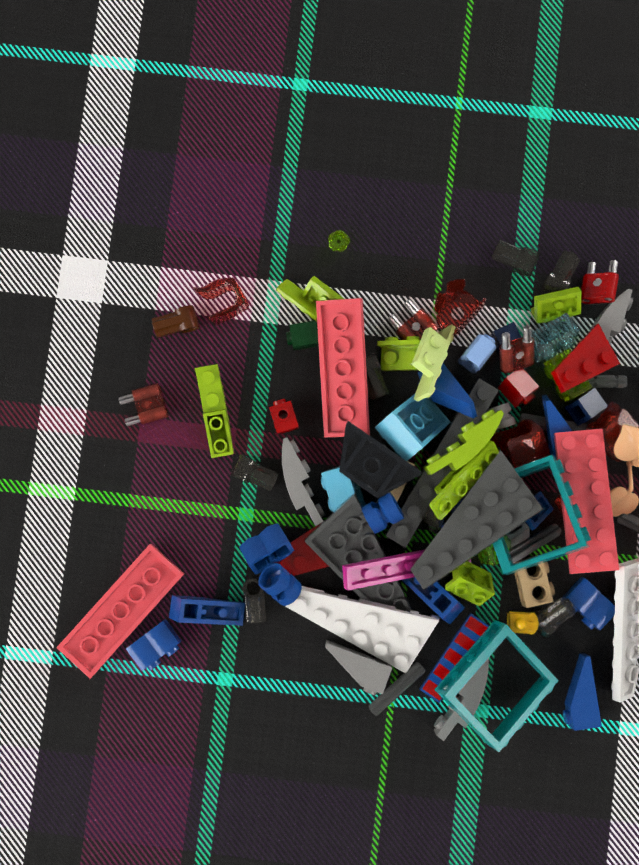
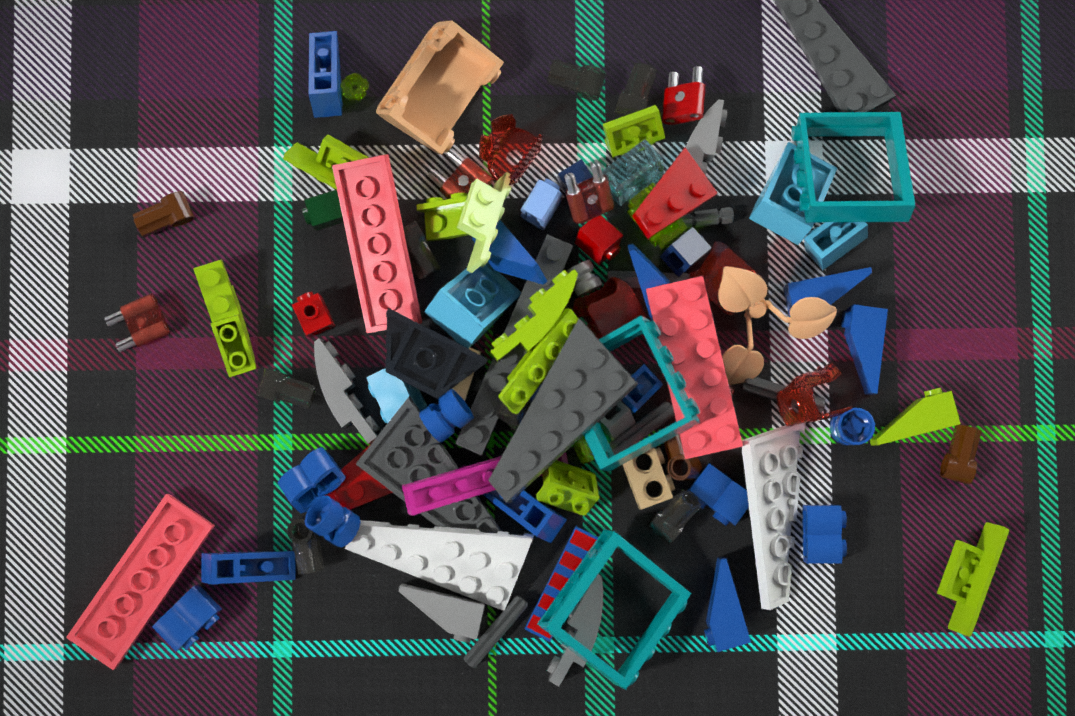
camera: 10 degrees left, 0 degrees up
(219, 287) = (209, 166): clear red piece -> none
(316, 228) = (325, 74): none -> blue slope
(406, 247) = (438, 85): none -> light nougat windscreen
(522, 622) = (639, 528): yellow piece -> none
(559, 566) = (676, 457): none -> reddish brown piece

